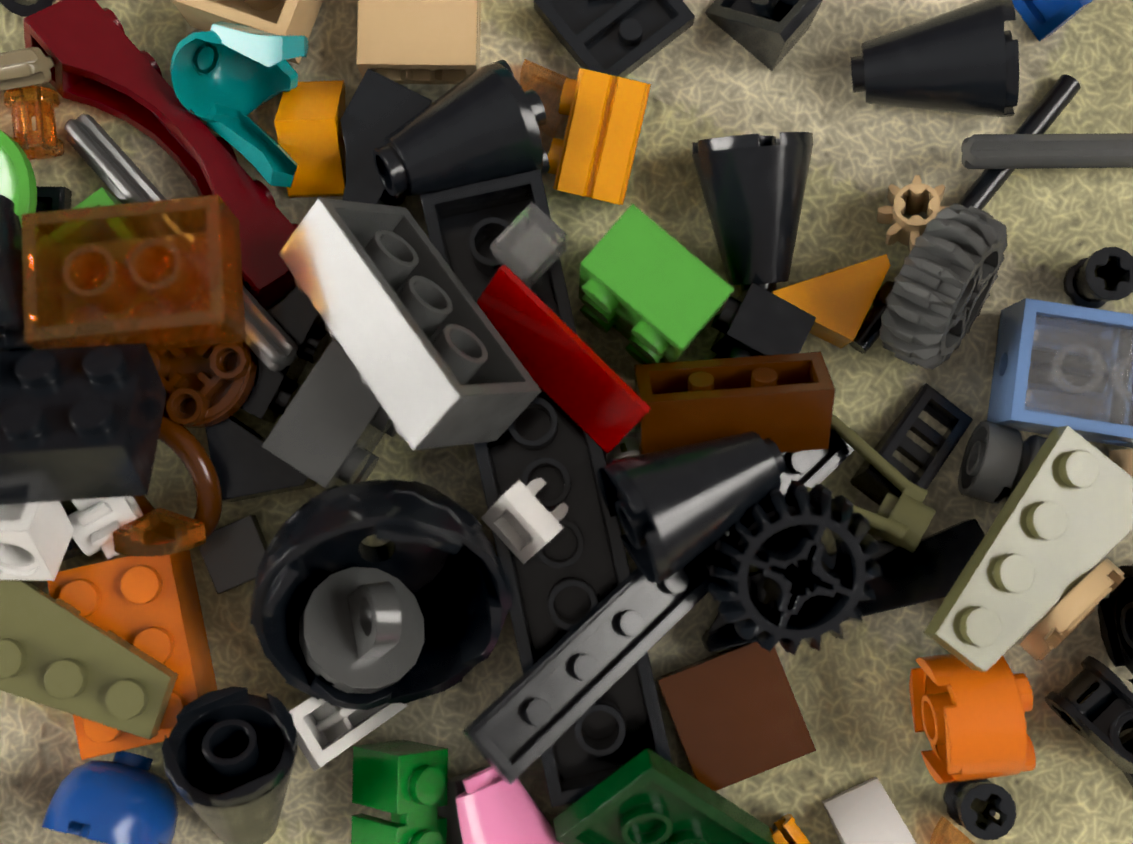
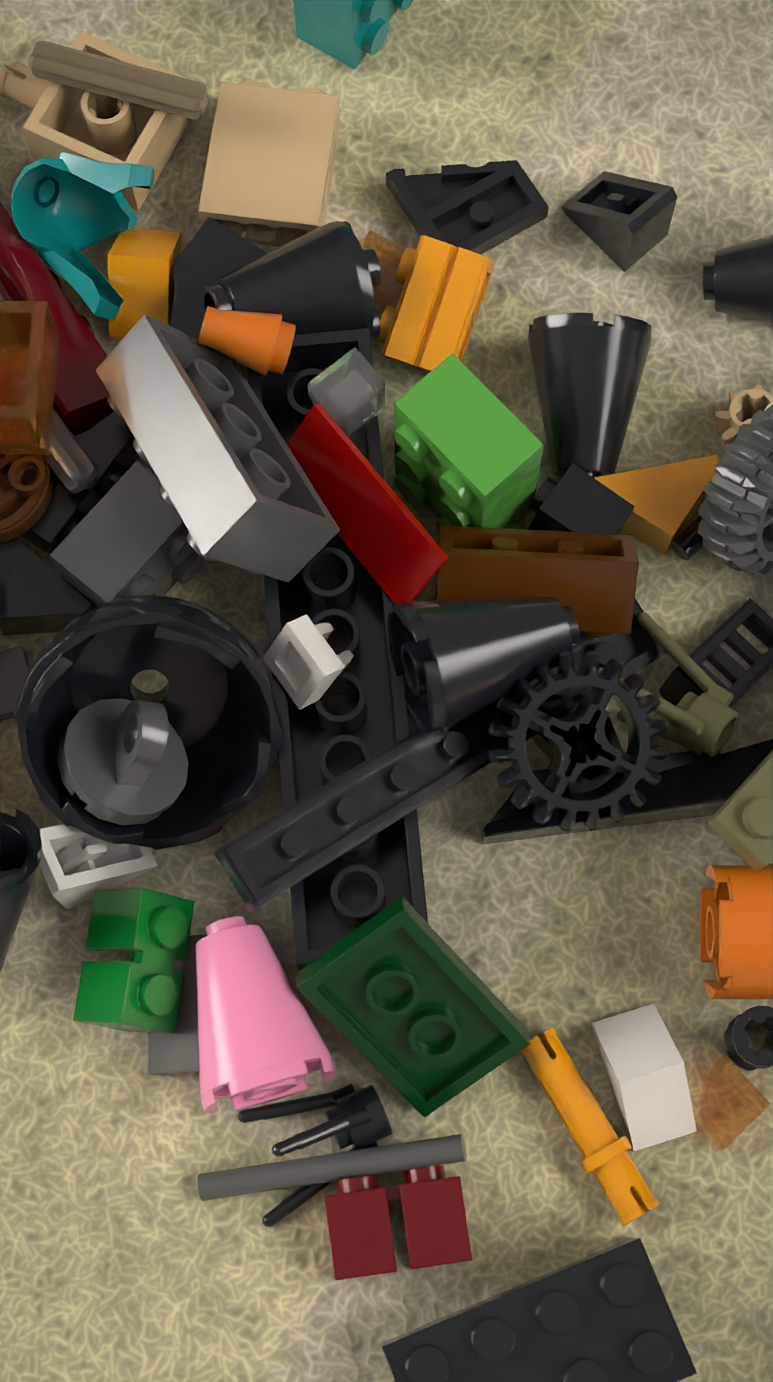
camera: 10 degrees right, 10 degrees down
(426, 199) = (249, 338): none -> orange cone
(735, 715) = (508, 909): reddish brown tile -> none

